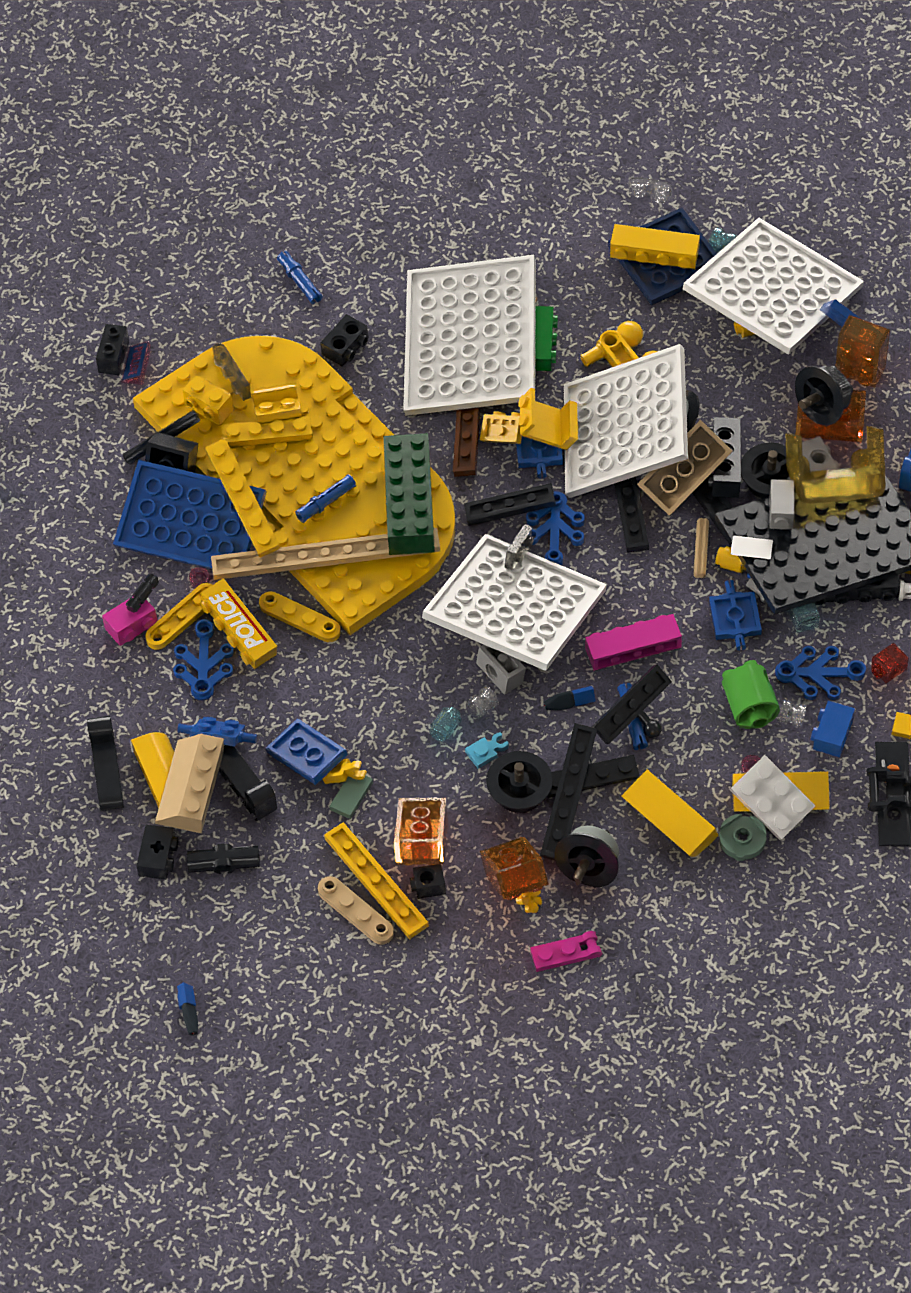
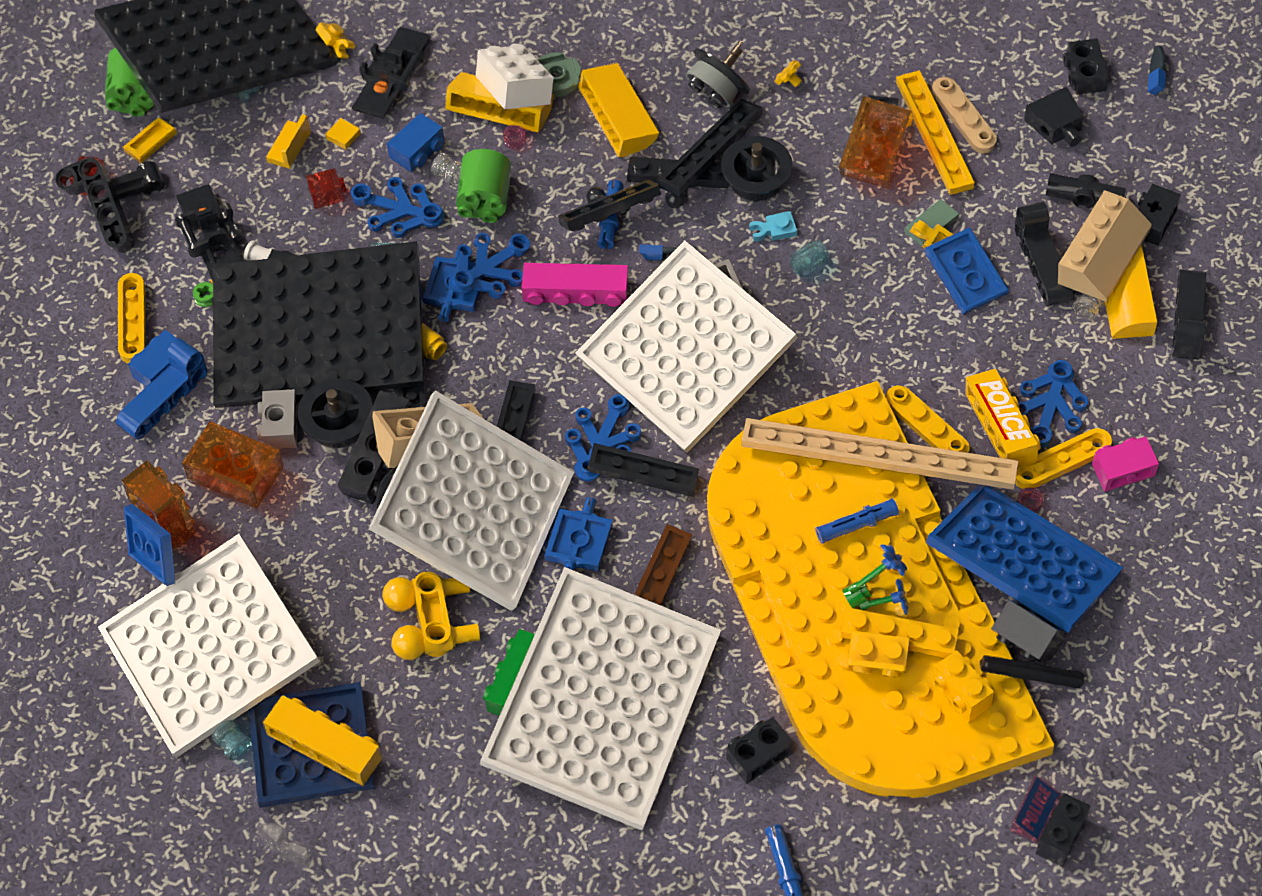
camera: 160 degrees left, 0 degrees up
(142, 593) = (1106, 468): black axle -> none
(230, 370) = (921, 721): clear smoke plate -> none
(230, 730) = (1058, 307): blue plate -> none
(242, 498) = (959, 531): yellow plate -> none
(252, 988) = (1086, 66): none -> black brick
(268, 924) = (1056, 117): none -> black torso
(304, 443) = (858, 592): none -> plant
(408, 494) = (760, 479): dark green brick -> none
(482, 702) = (760, 268): clear wheel -> none
(501, 428) = (610, 562): yellow bracket -> none
(514, 868) = (797, 79): clear orange brick -> none
(517, 549) = (661, 398): clear smoke plate -> none
(548, 423) = (557, 541): yellow panel -> none
(565, 951) = (771, 26): dark pink plate -> none
(701, 548) = (454, 366): tan axle -> none
(712, 630) = (486, 267): none -> blue plant
(751, 547) = (406, 317): white sticker -> none
(781, 504) = (350, 344): light grey brick -> none
(823, 393) = (237, 439): black piece -> none
(861, 481) = (265, 368): clear yellow windscreen -> none

